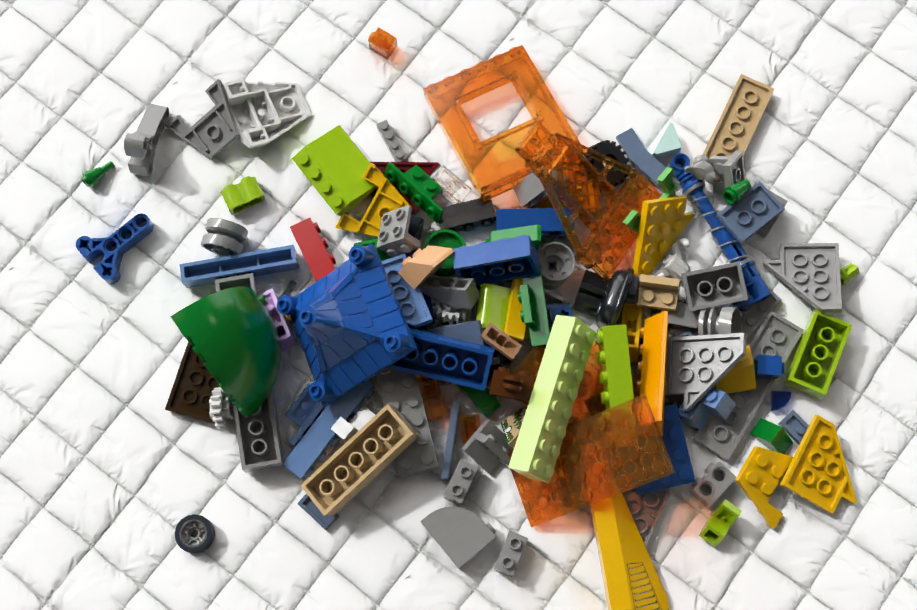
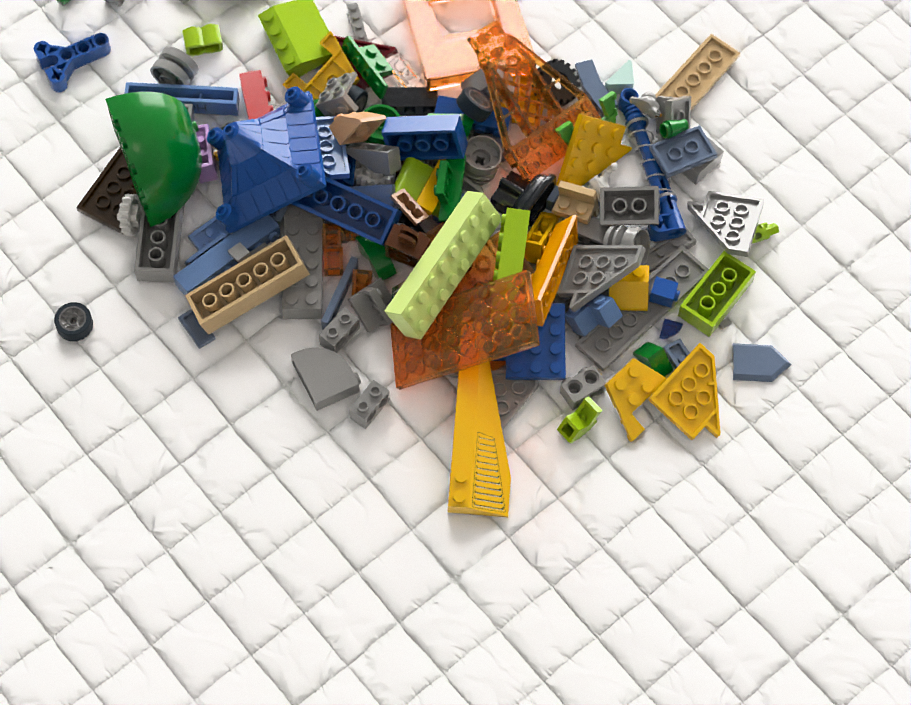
camera: 10 degrees right, 10 degrees down
(538, 215) = (475, 104): none -> black wheel
(871, 415) = (757, 362): none -> sand blue tile

